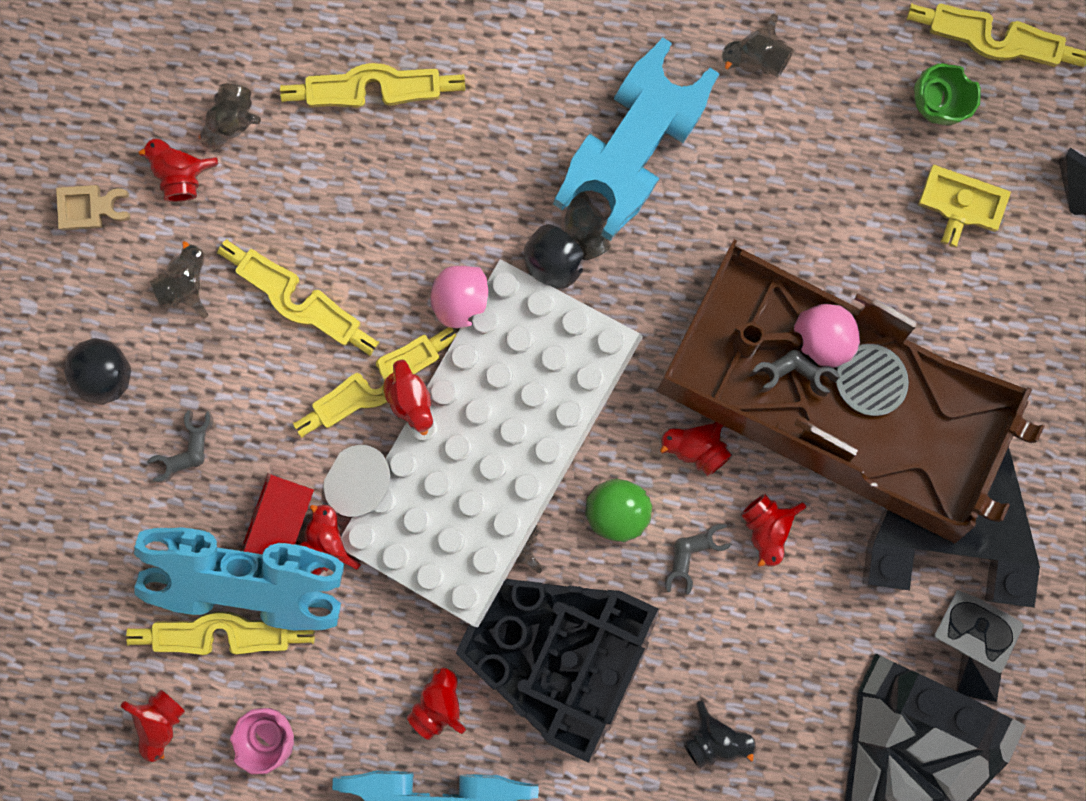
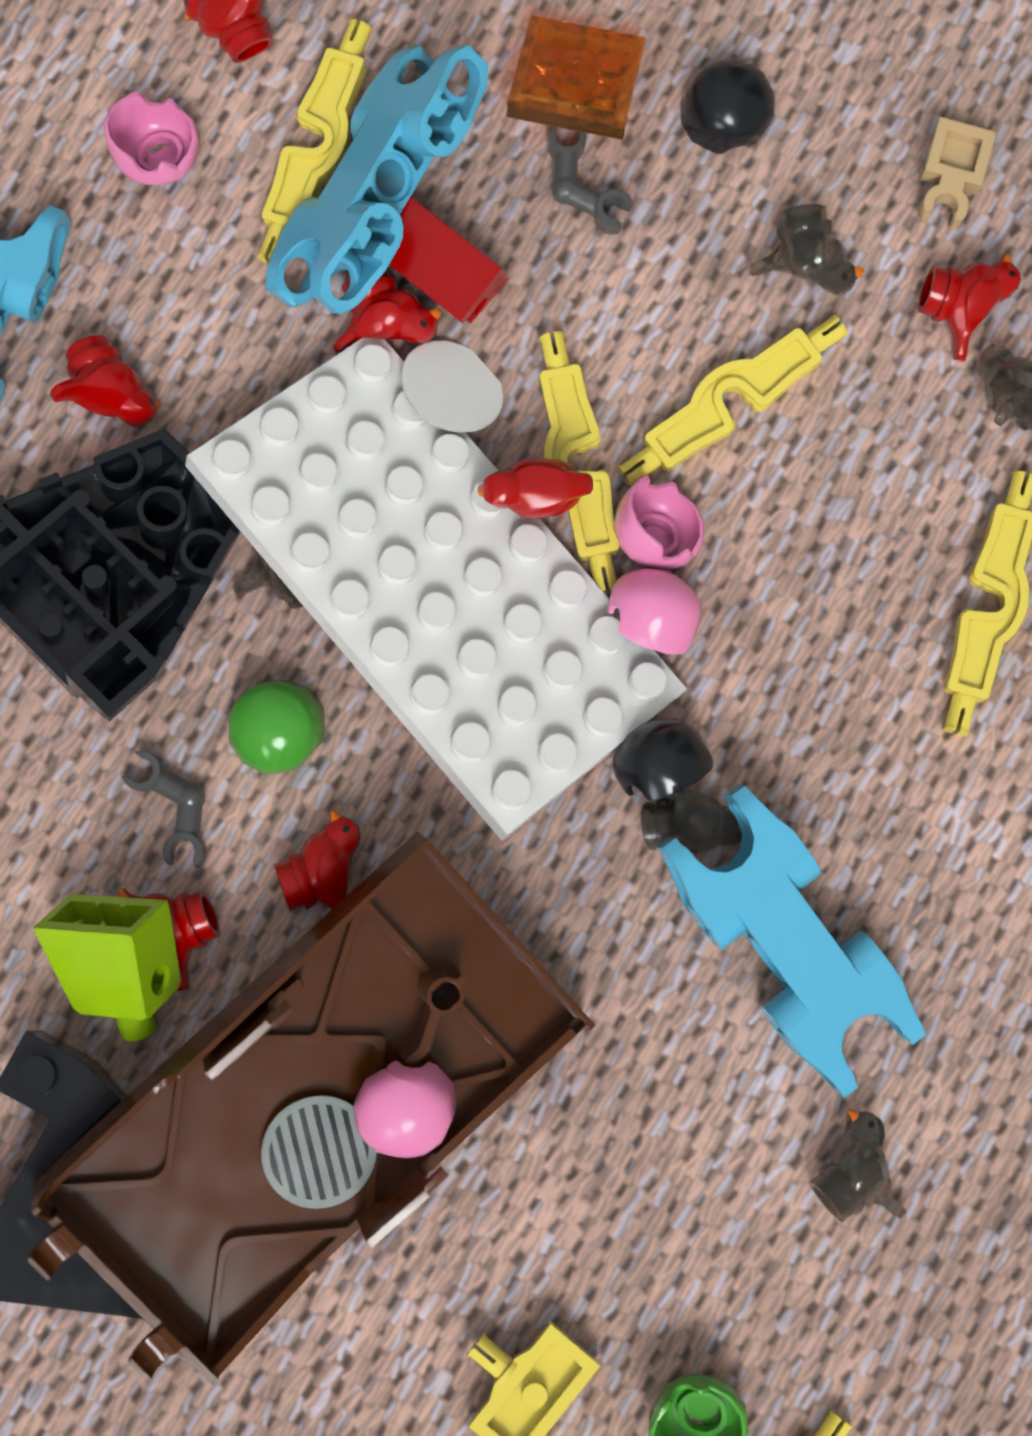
camera: 110 degrees right, 5 degrees down
(117, 476) = (576, 77): none -> clear orange plate
(402, 313) = (644, 515): none -> bright pink hair
(796, 361) = (385, 1048): dark grey arm -> none
(803, 550) = (113, 958): none -> lime torso

